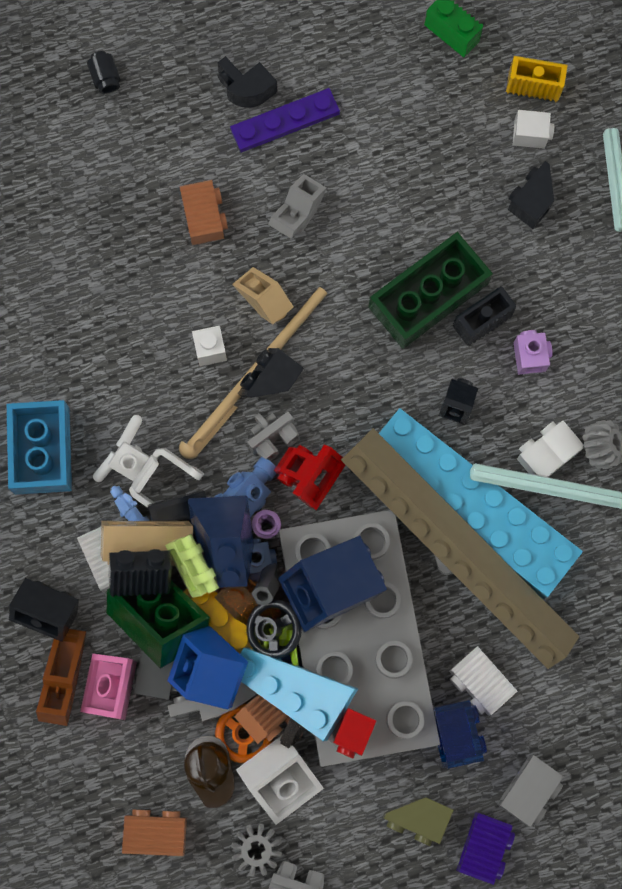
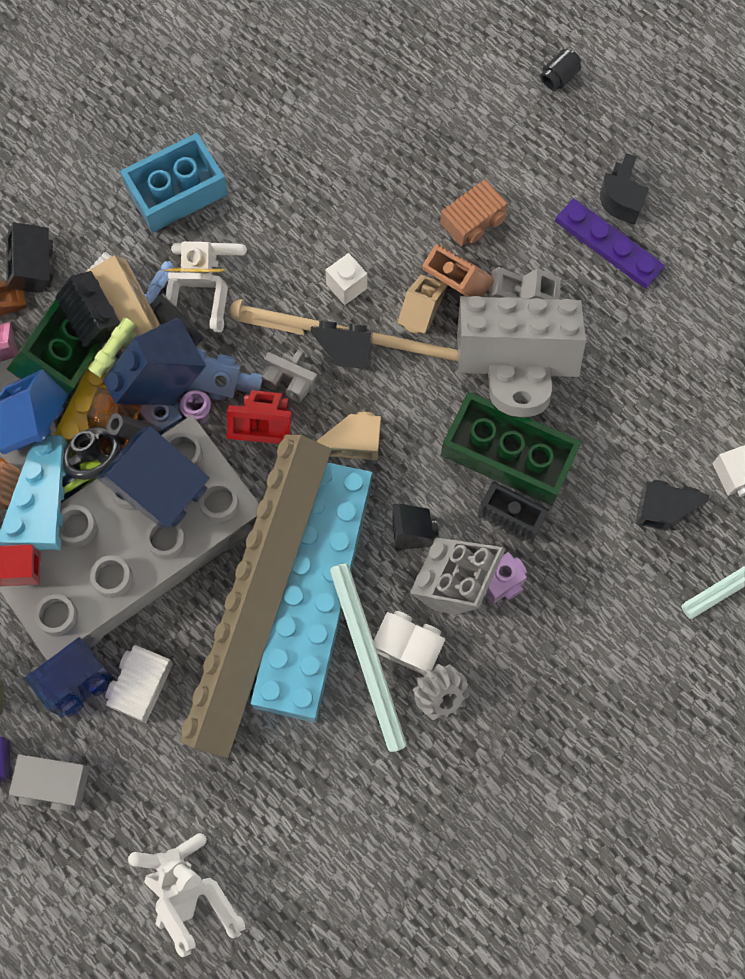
camera: 65 degrees right, 5 degrees down
(144, 465) = (194, 270): none -> yellow sticker
(256, 253) = (457, 272): none -> nougat brick
(350, 237) = (520, 347): none -> light grey brick
(355, 408) = (354, 437): none -> tan slope
(524, 381) = (456, 575): none -> light grey slope

